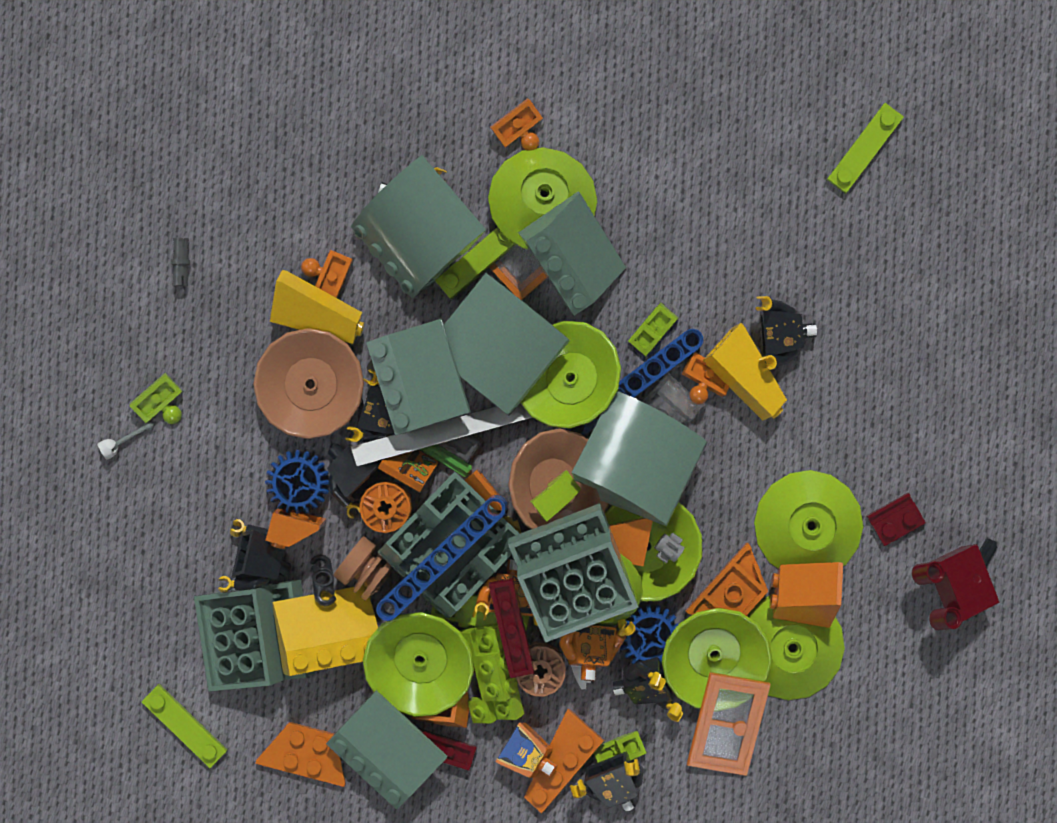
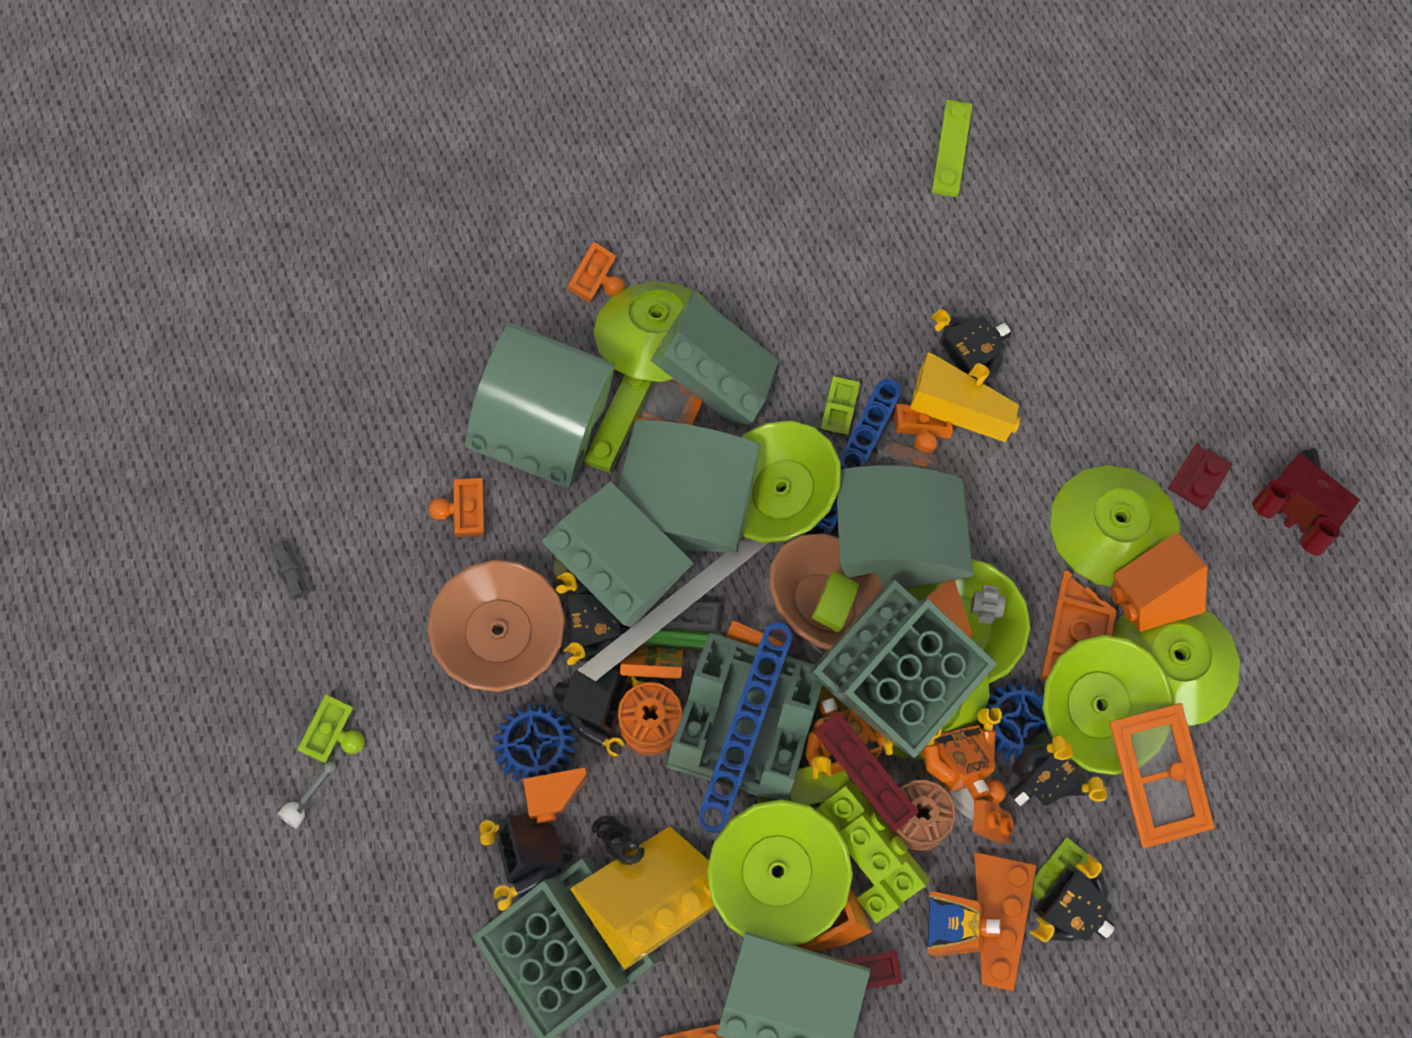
camera: 30 degrees left, 20 degrees down
(306, 306) = (450, 546): yellow slope -> none
(364, 568) = (659, 800): nougat wheel -> none
(592, 697) = (989, 818): none -> orange plate

